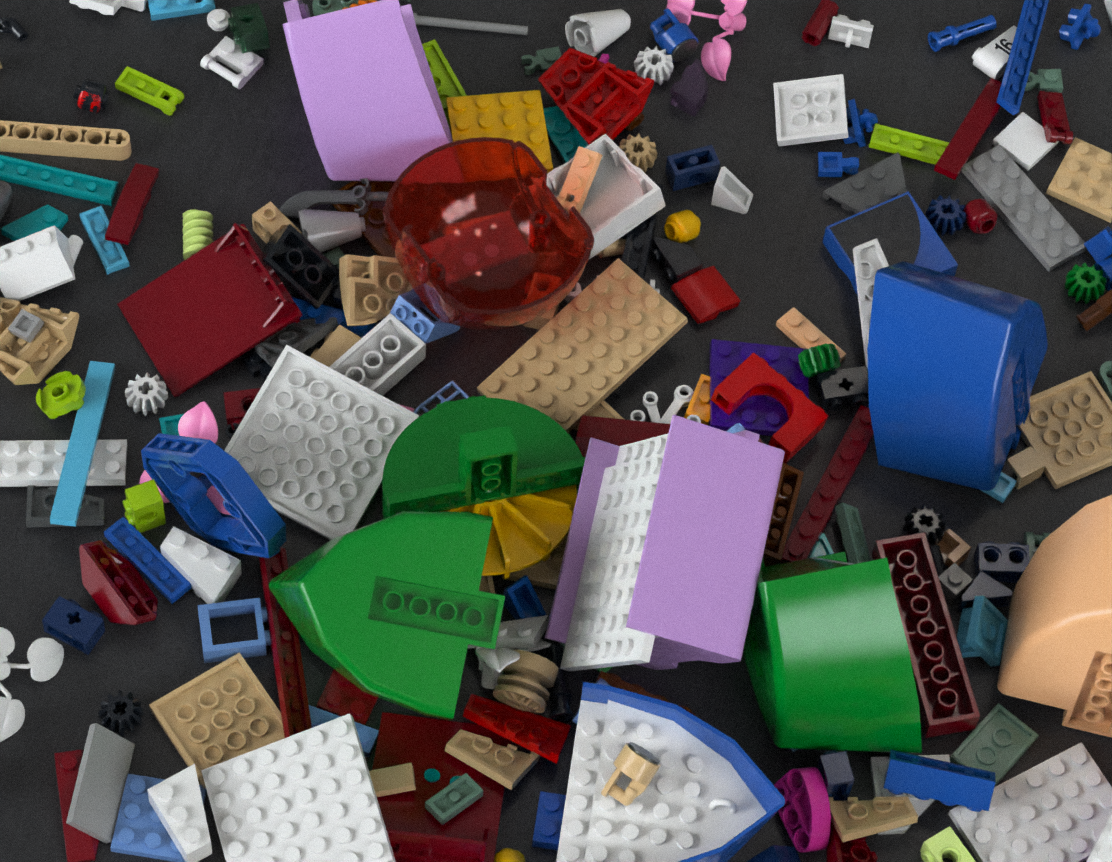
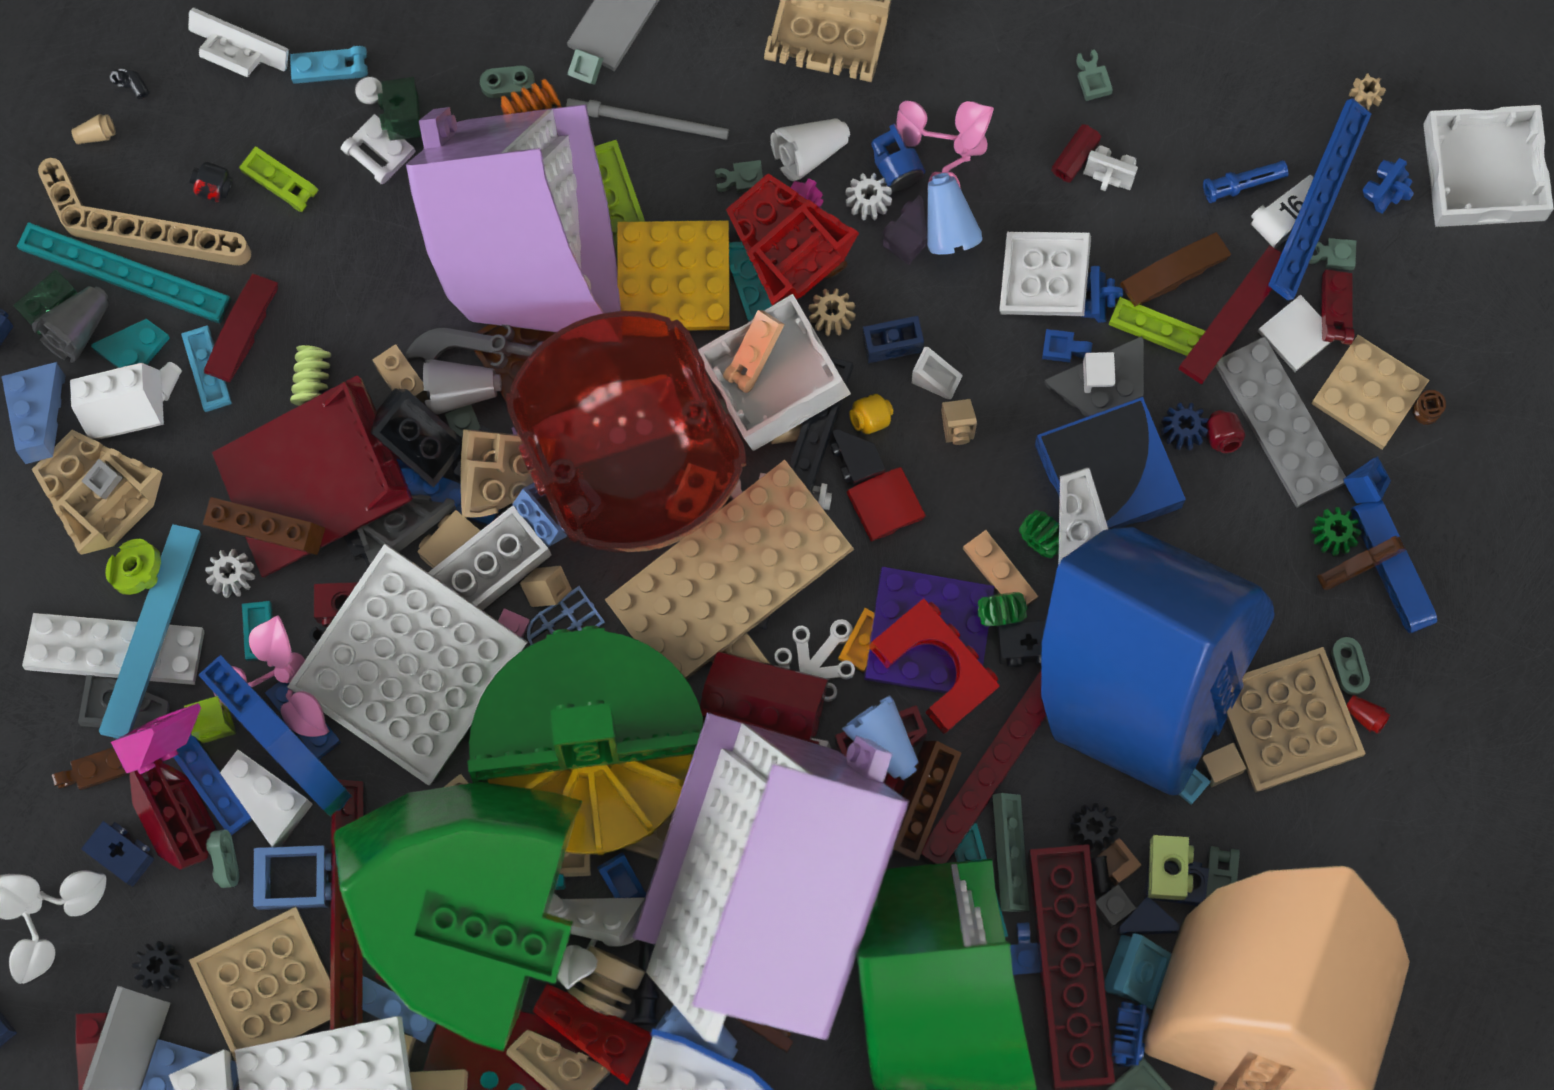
camera: 15 degrees right, 15 degrees up
(45, 560) = (91, 770): none -> reddish brown plate
(105, 514) = (156, 739): none -> dark pink slope
(172, 627) = (224, 859): none -> sand green plate
(173, 350) = (264, 526): none -> reddish brown brick
(424, 381) = (546, 586): none -> tan panel
(725, 69) = (949, 217): none -> light blue cone
(757, 225) = (959, 421): none -> tan slope
(842, 303) = (1041, 533): none -> green gear
(868, 173) = (1098, 370): none -> white panel
(917, 99) = (1175, 269): none -> reddish brown slope
(986, 680) = (1130, 1048): none -> blue hinge
(993, 556) = (1160, 882): none -> yellowish green brick

